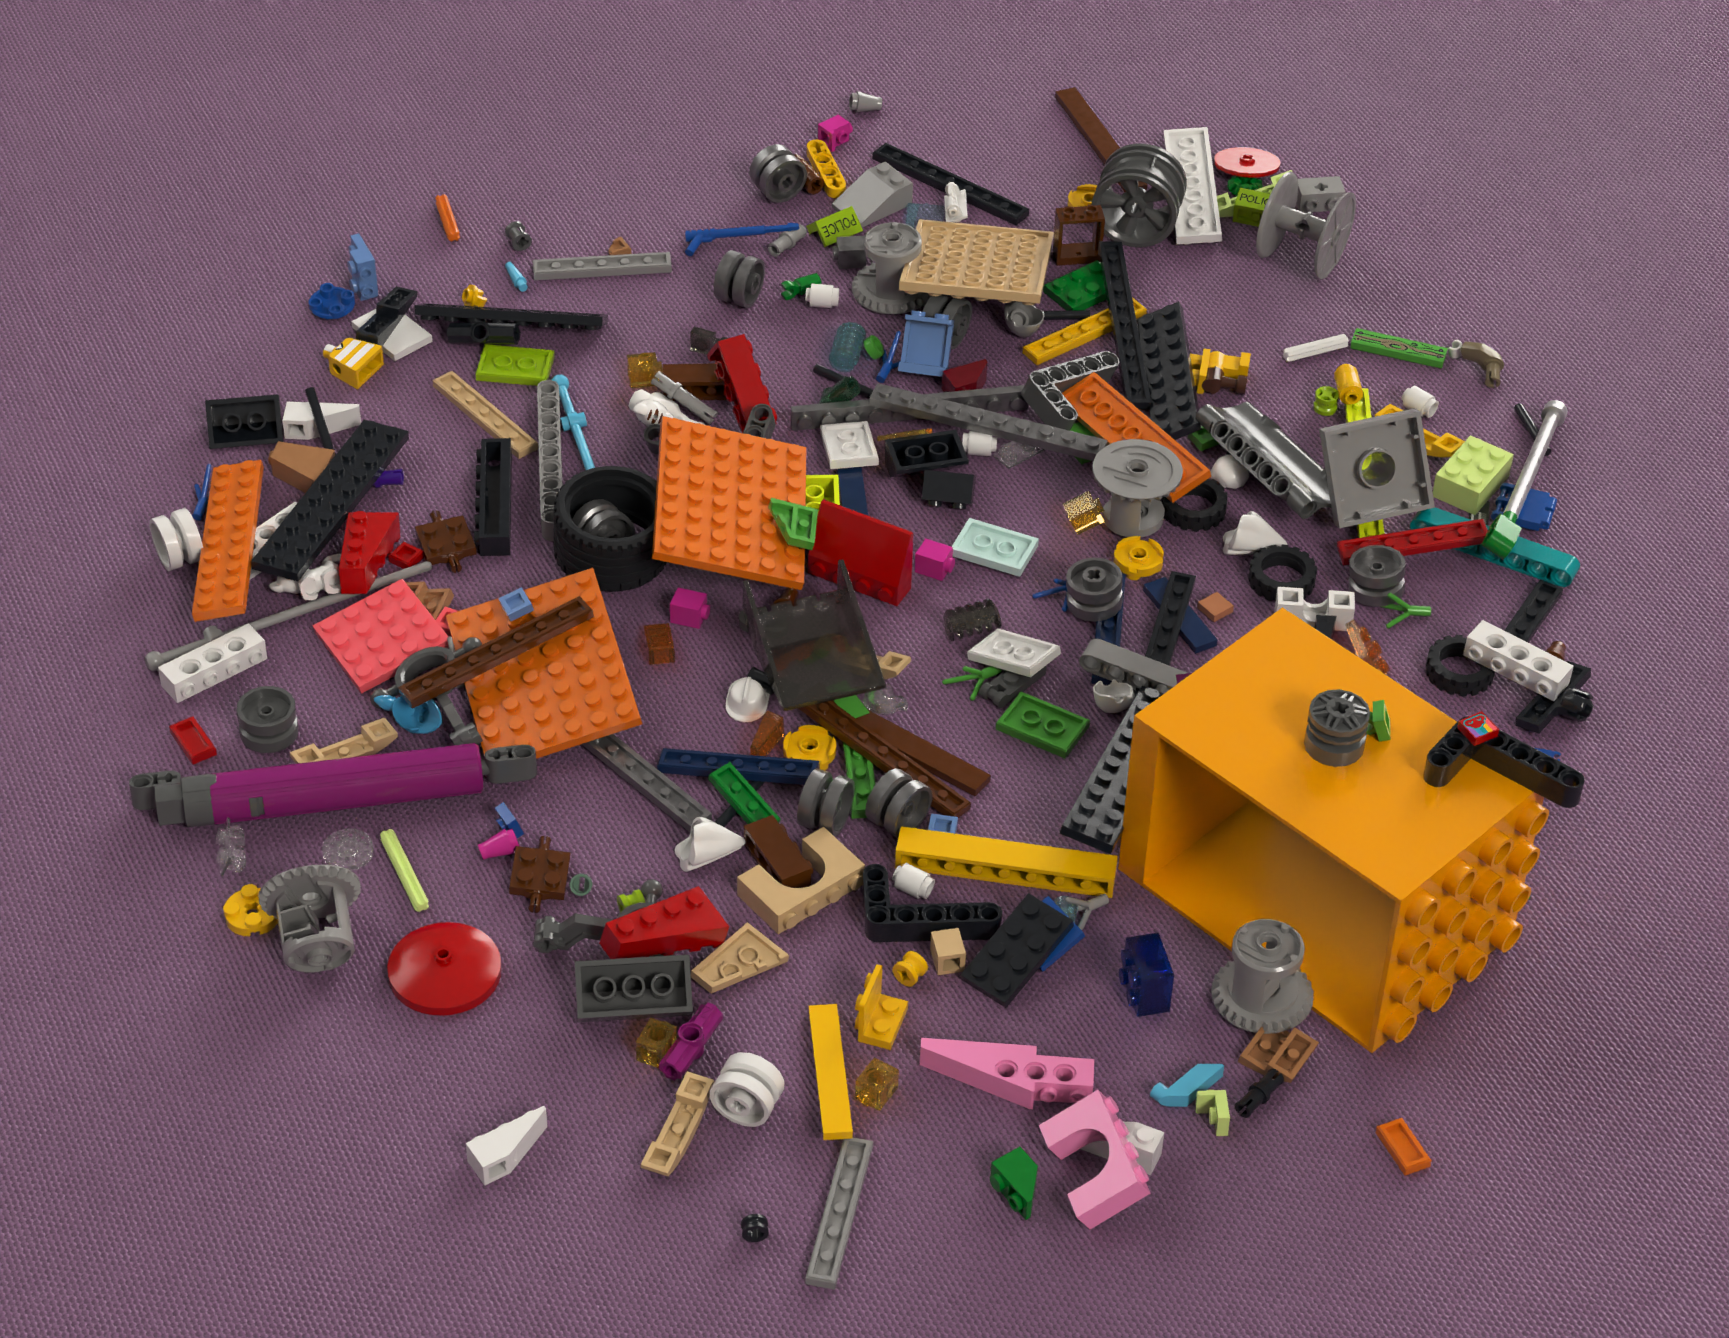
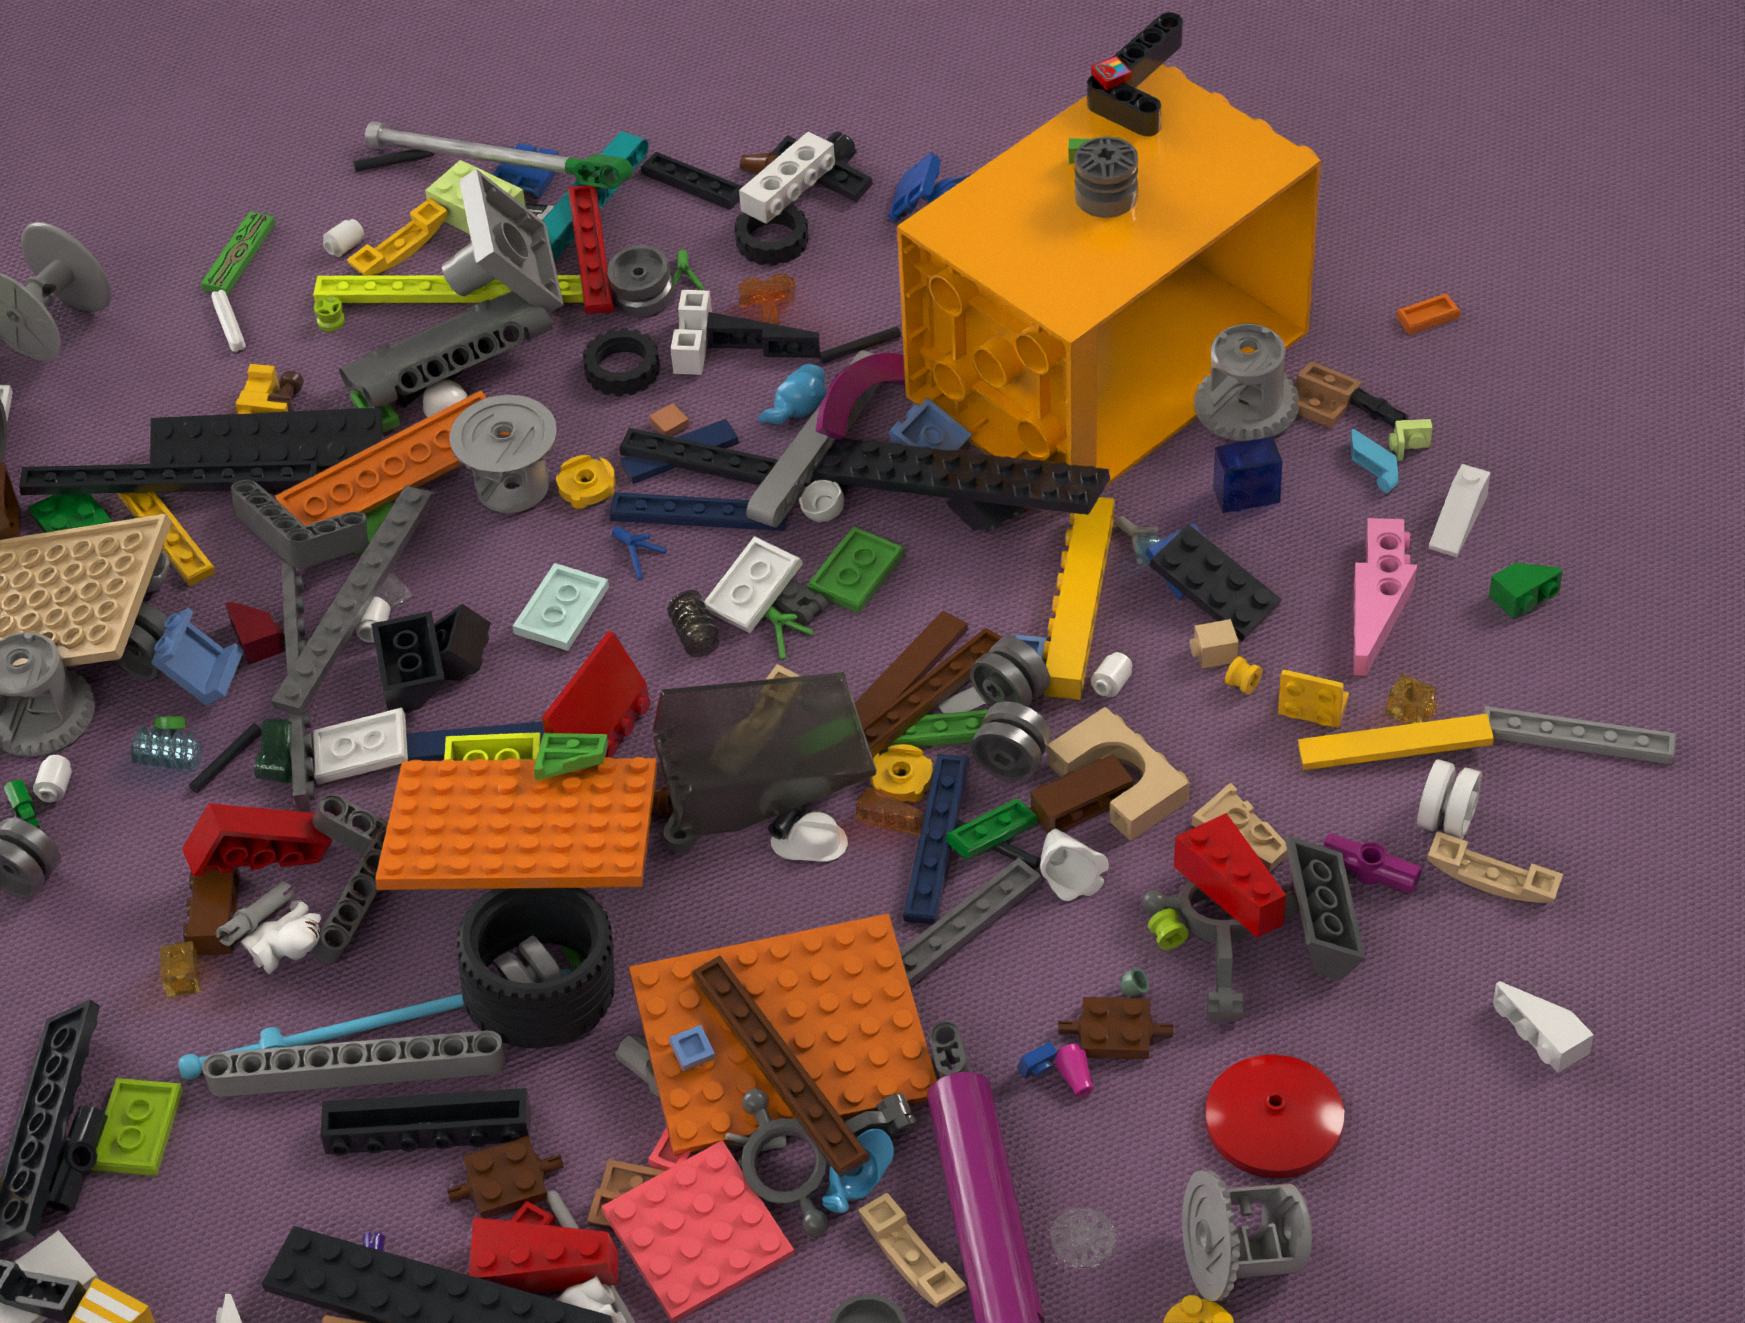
camera: 85 degrees left, 5 degrees up
(404, 870) = (1117, 1170): yellowish green axle -> none
(484, 413) = (236, 1156): tan tile -> none
(655, 1042) = (1376, 894): clear yellow brick -> none
(659, 643) = (723, 937): clear orange slope -> none
(689, 608) = (658, 897): dark pink brick -> none
(703, 340) = (130, 902): clear smoke plate -> none
(754, 1228) = (1619, 799): black bush -> none
(887, 362) = (203, 711): blue plant -> none
(904, 434) = (360, 682): clear yellow piece -> none
(917, 921) = (1173, 699): black beam -> none
(934, 559) = (576, 654): dark pink brick -> none
(1084, 512) = (514, 519): clear yellow brick -> none
(1094, 589) = (659, 505): flat silver wheel -> none
(1121, 1180) = (1532, 493): bright pink arch -> none
(1251, 536) = (562, 385): white hat -> none
(1348, 384) = (321, 283): yellow head -> none
(1483, 355) = (273, 180): dark tan arm -> none

